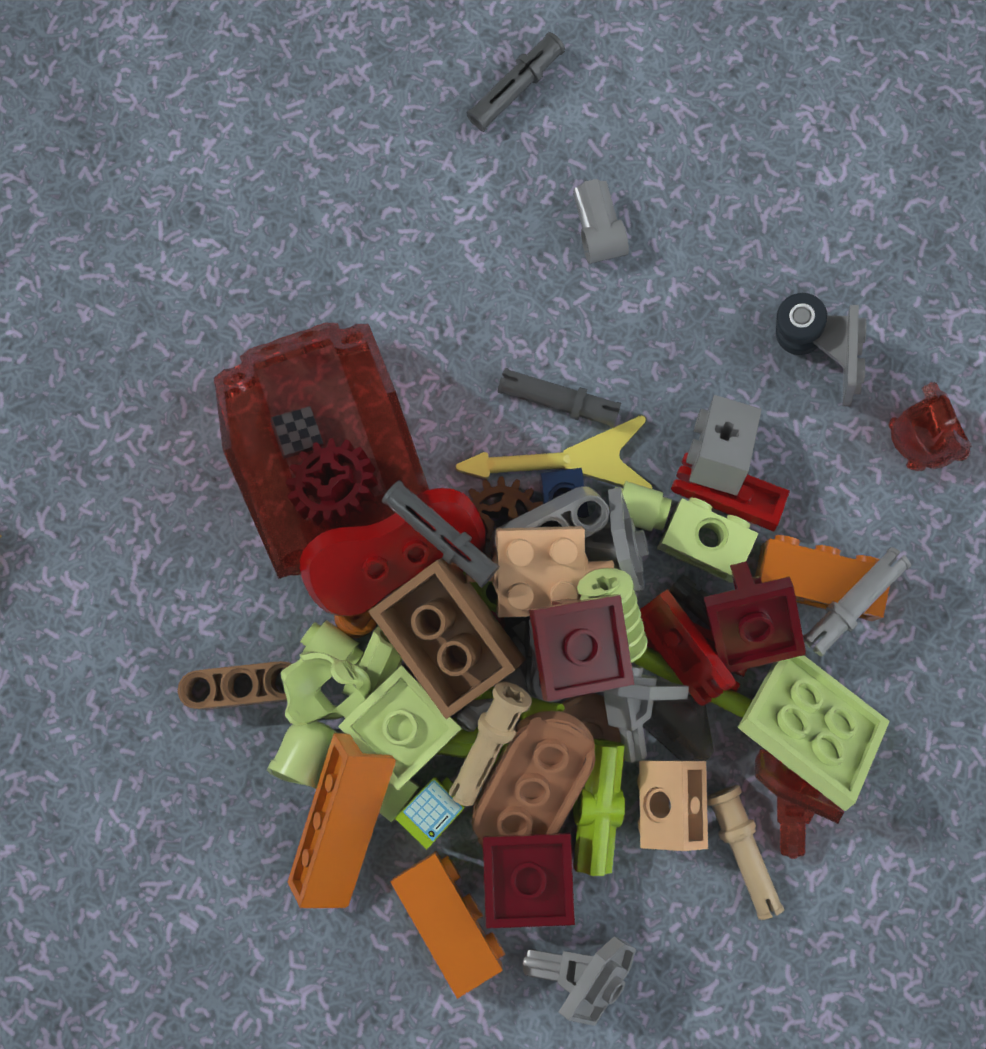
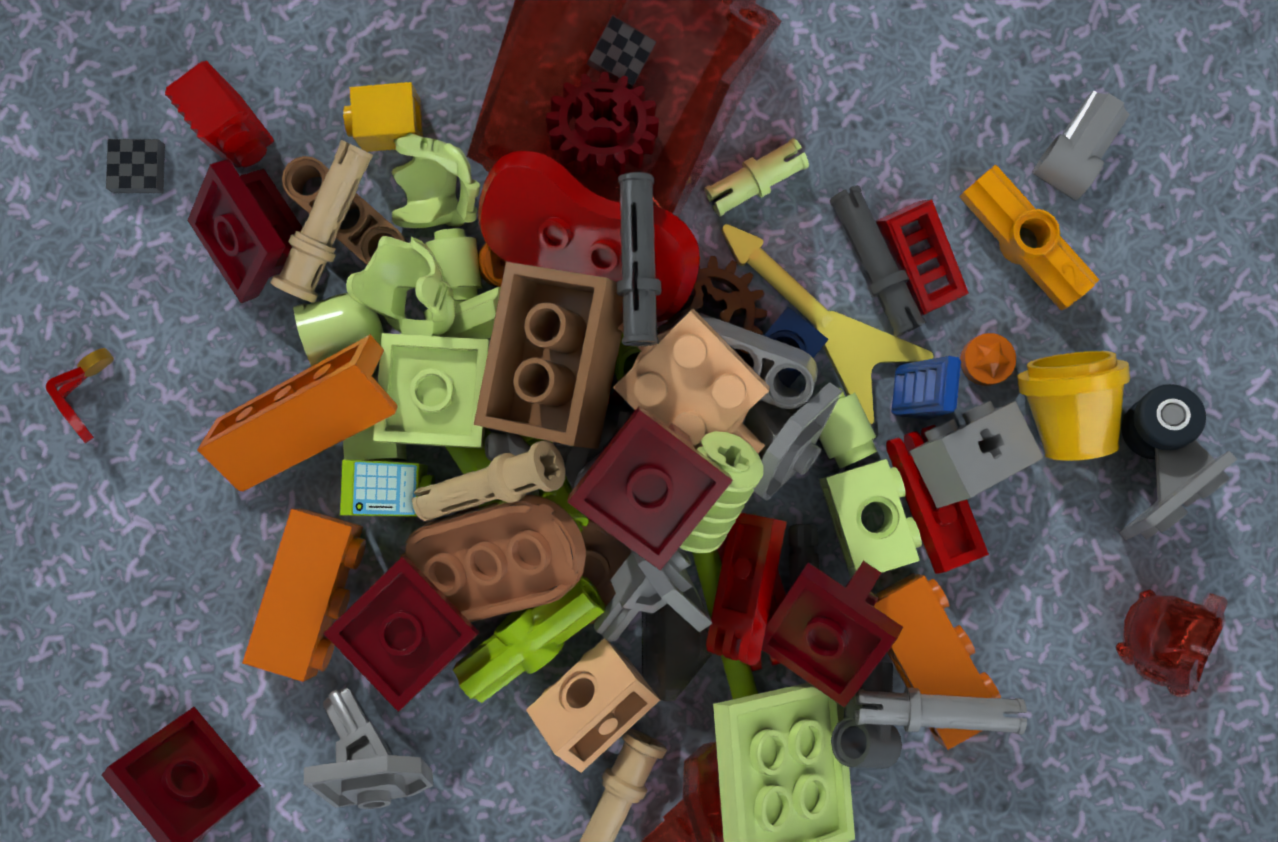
camera: 50 degrees right, 5 degrees up
(82, 790) = (135, 166): none -> dark grey tile
(110, 706) = (219, 115): none -> red brick
(191, 755) = (243, 226): none -> dark red bracket
(199, 971) = (87, 367): none -> red piece
(201, 608) = (382, 114): none -> yellow brick
(243, 719) = (313, 245): none -> tan pin
(267, 618) = (431, 184): none -> yellowish green helmet
(444, 421) = (756, 177): none -> yellowish green pin
(584, 355) = (933, 231): none -> red slope
(651, 300) = (1052, 262): none -> light orange piece
(661, 438) = (926, 388): none -> blue slope
(675, 387) = (988, 359): none -> orange tile
(746, 361) = (1076, 402): none -> yellow piece
(845, 650) = (883, 741): none -> dark grey piece

